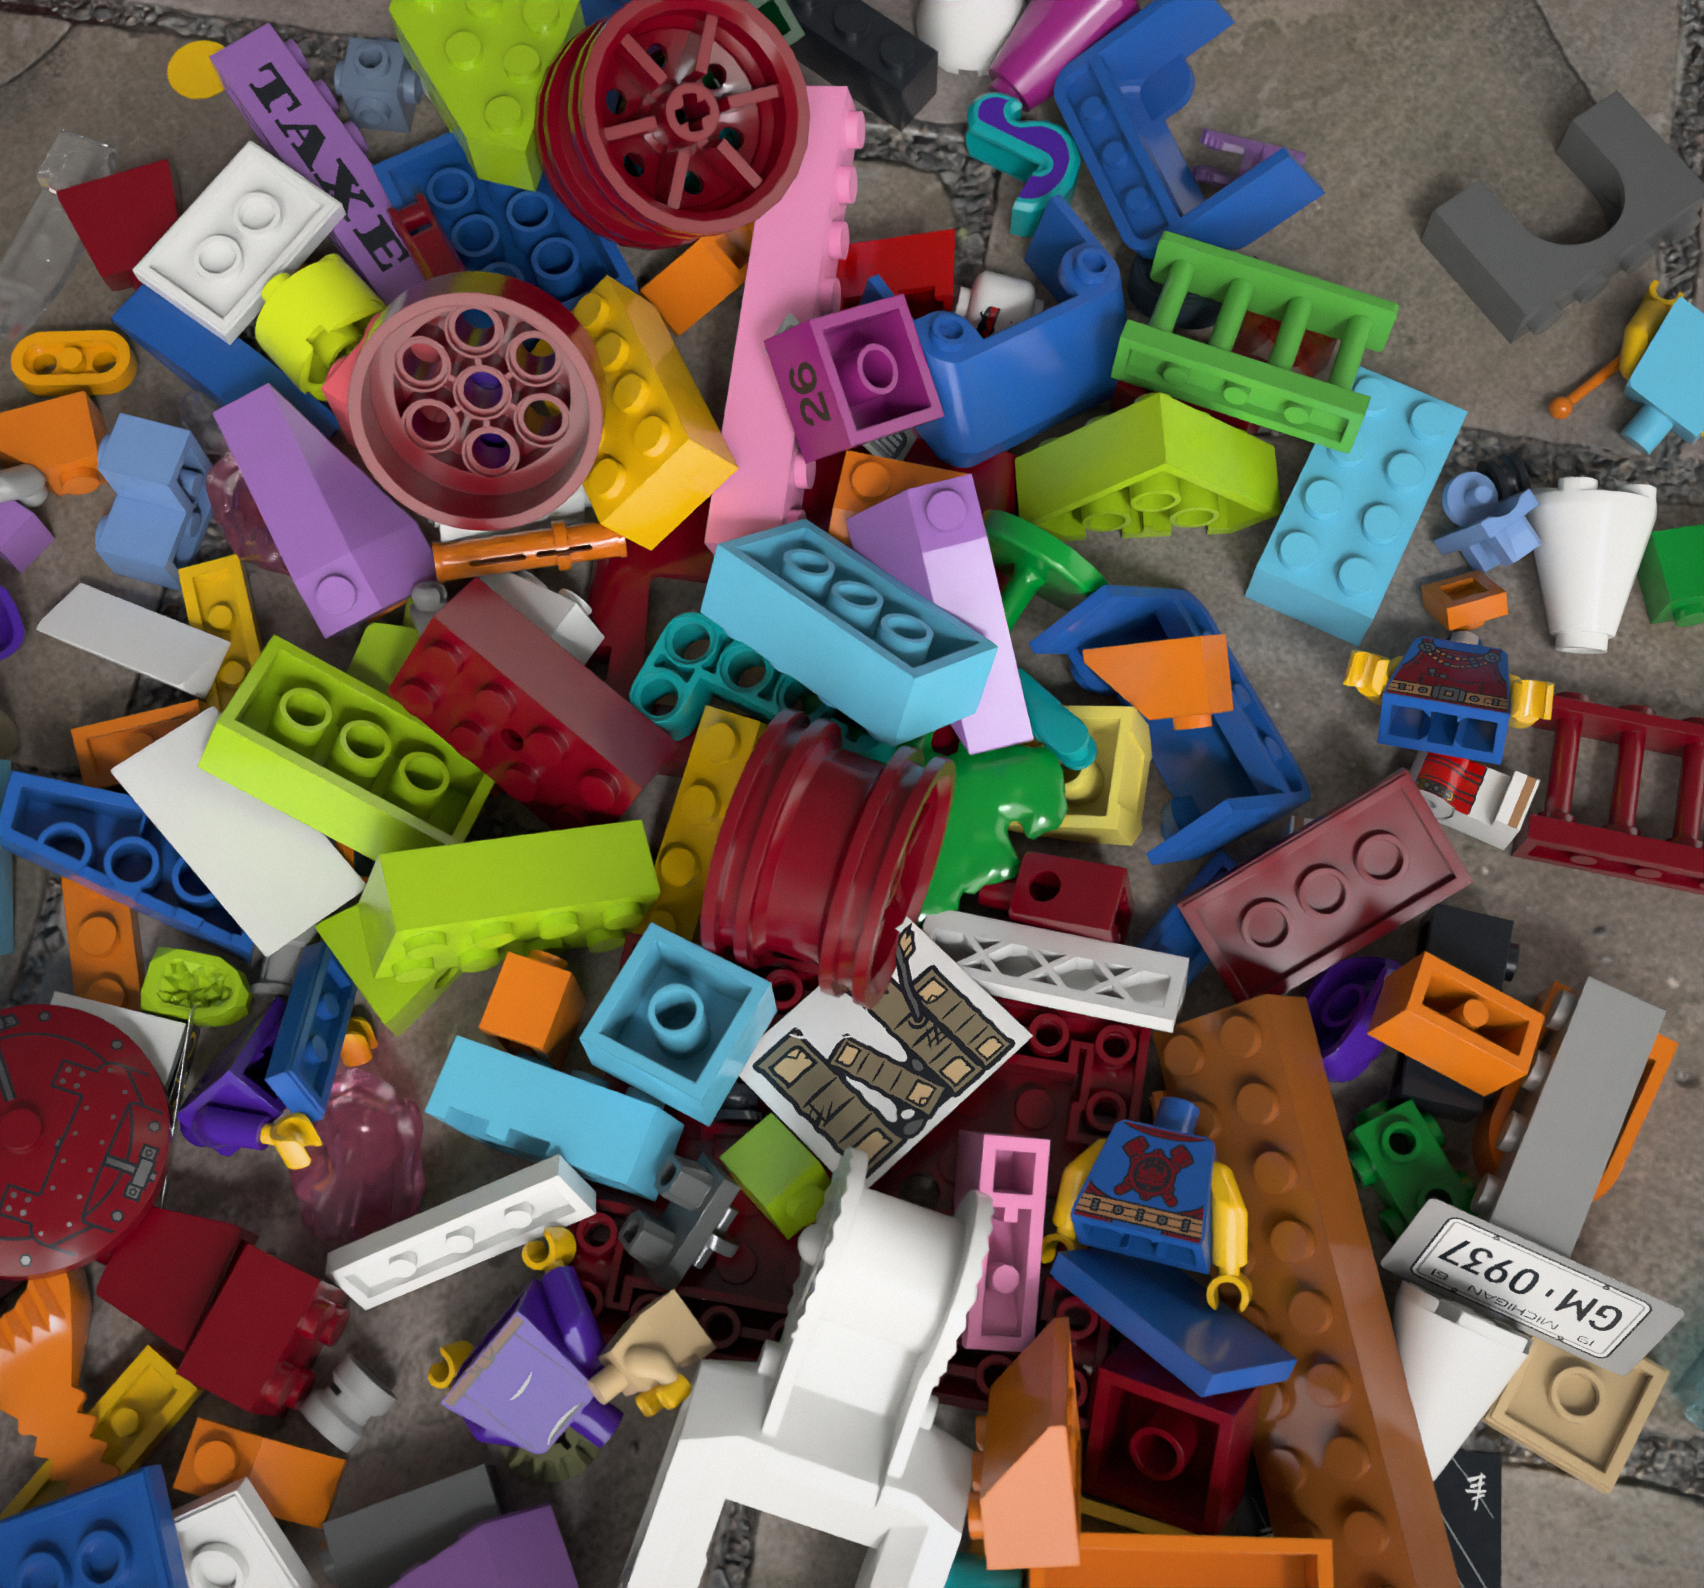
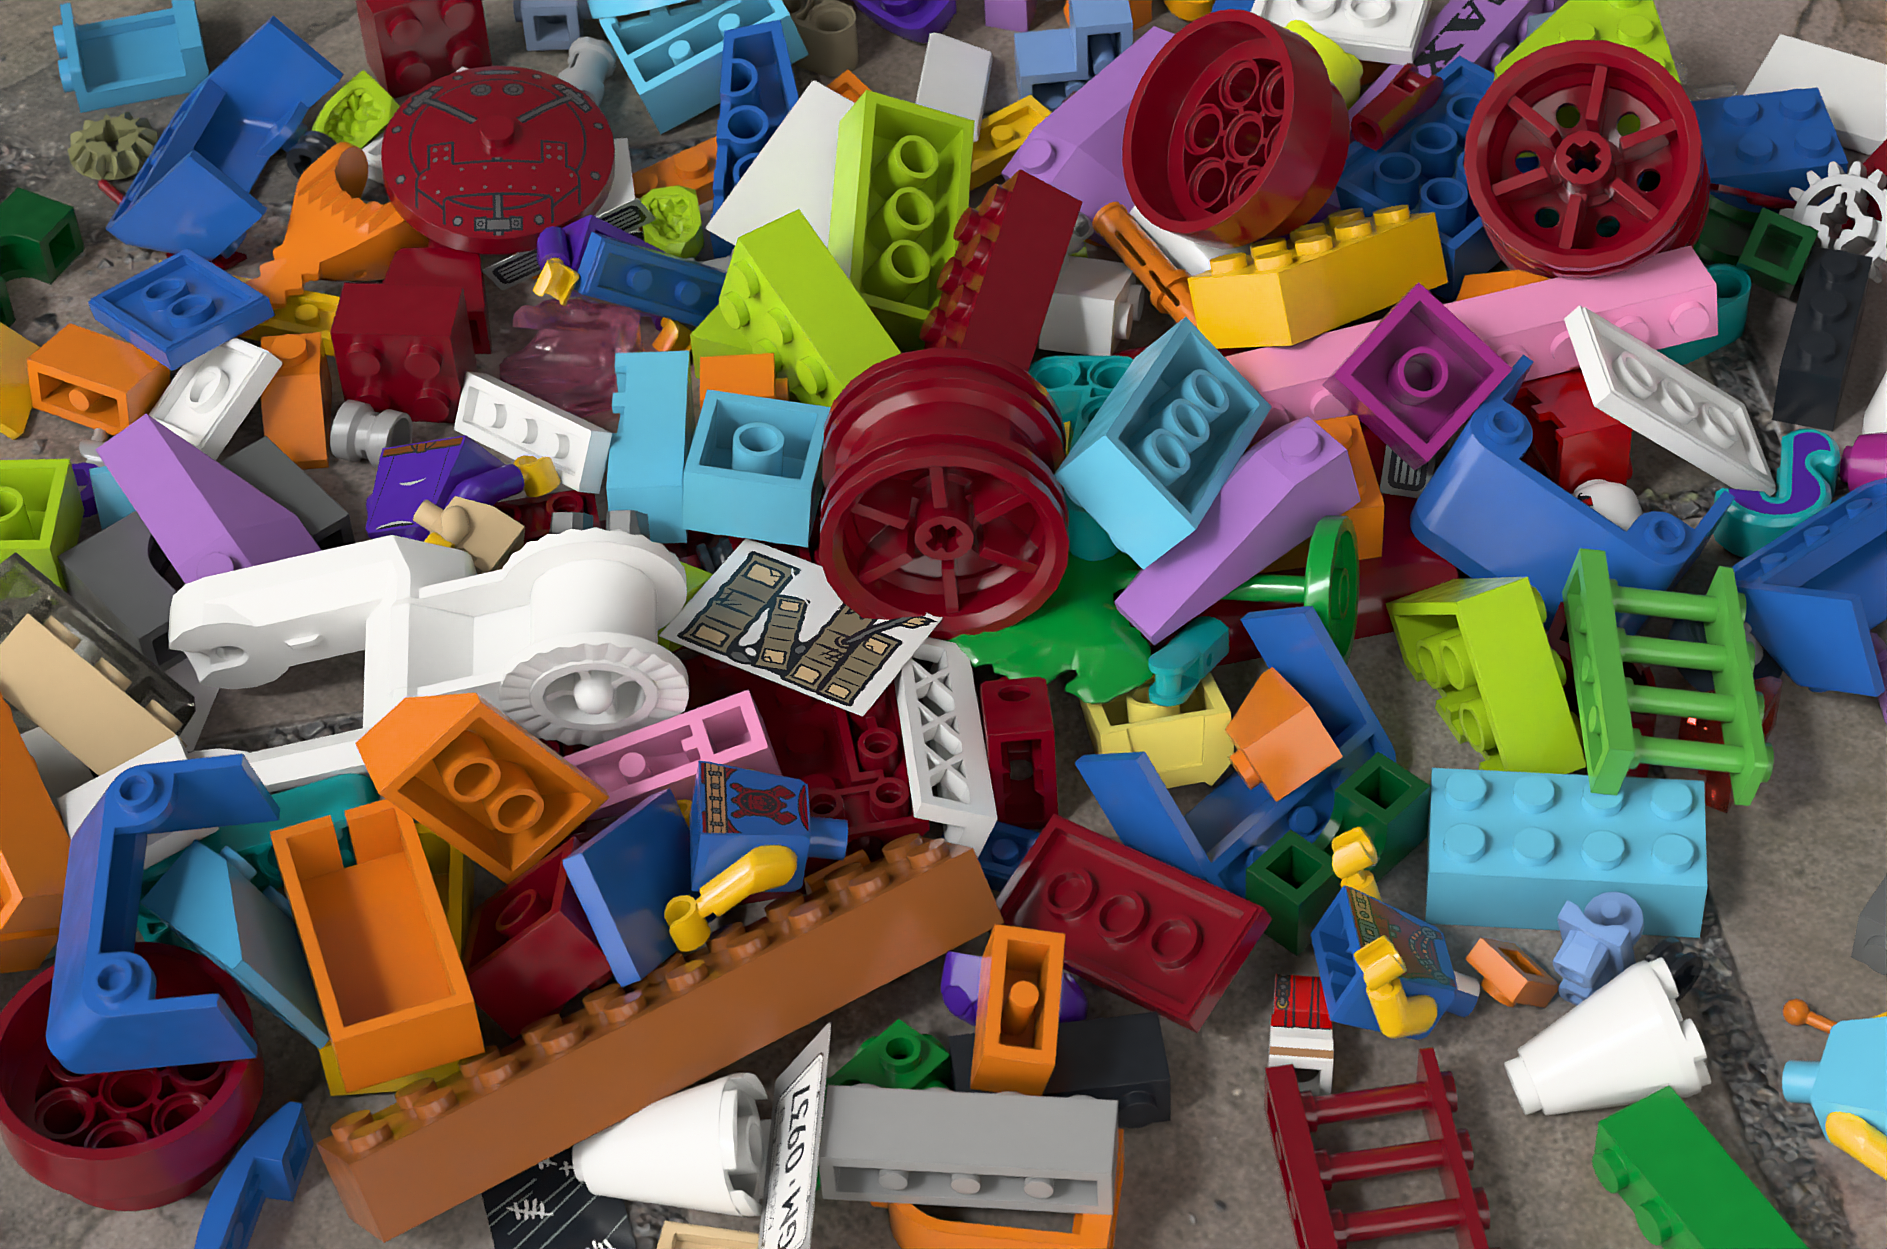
camera: 70 degrees right, 25 degrees down
(922, 195) = (1668, 403): none -> white tile
(1277, 652) = (1297, 876): none -> dark green arch

